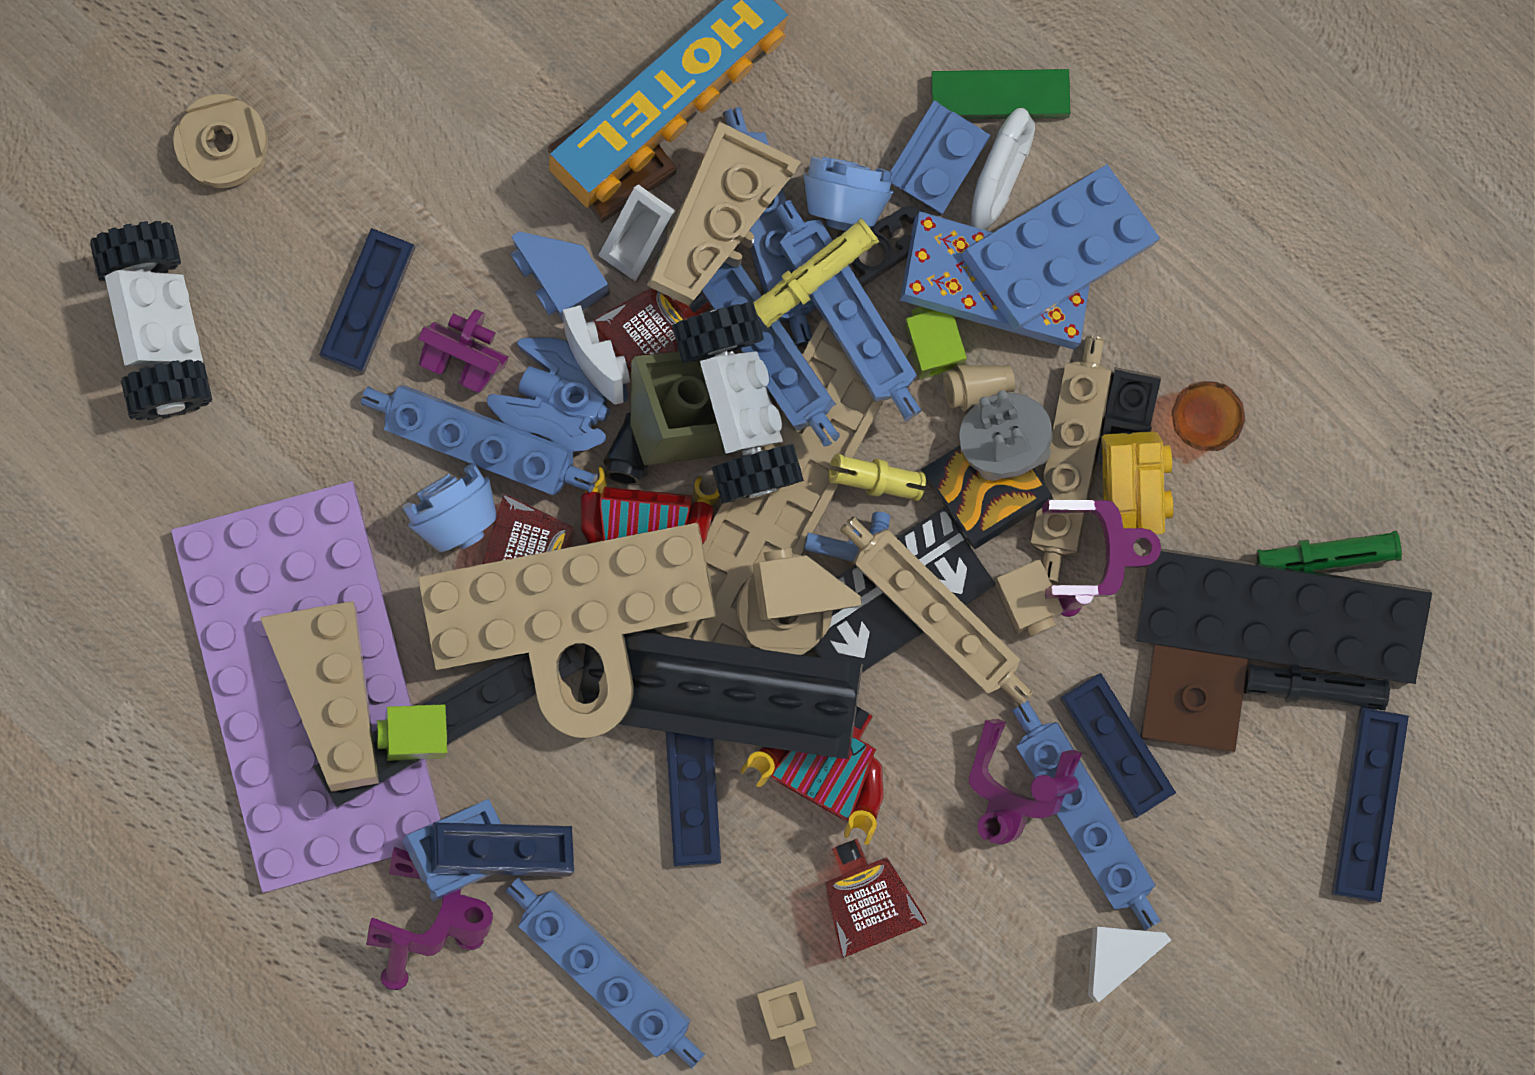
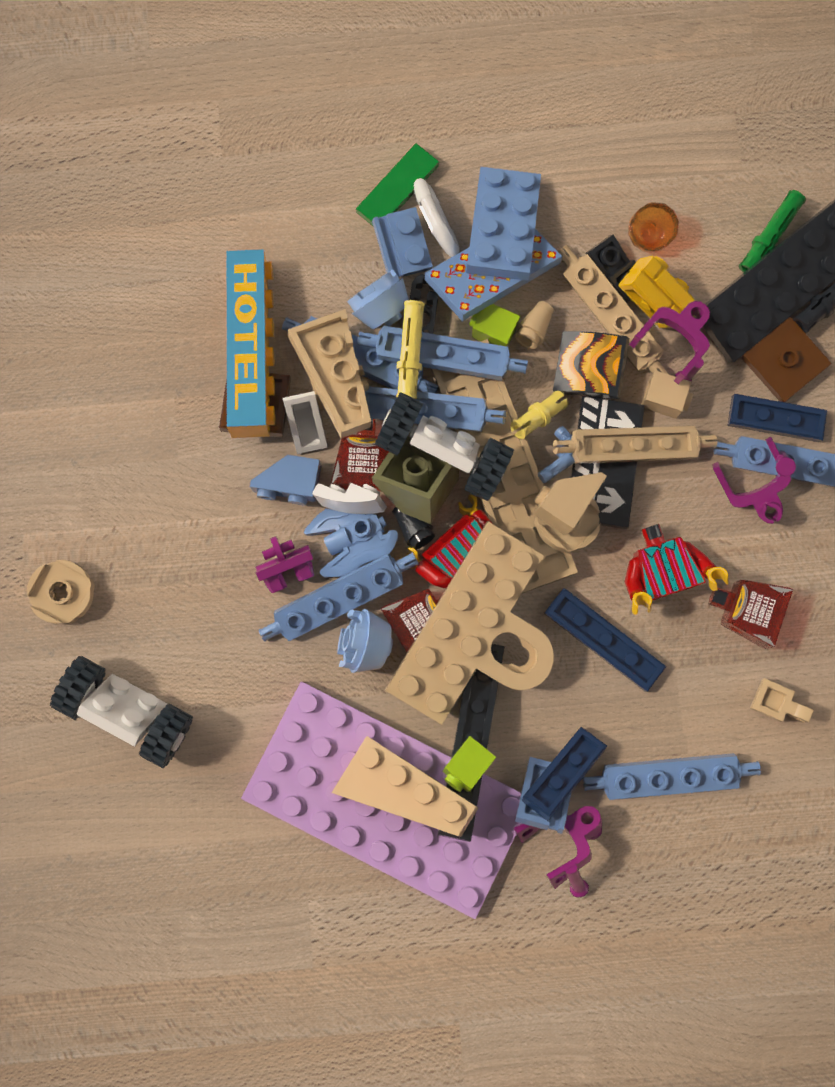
camera: 45 degrees left, 0 degrees up
(367, 301) = (213, 591): dark blue tile -> none
(736, 693) = (591, 581): black plate -> none
(1006, 435) = (589, 335): light grey plate -> none

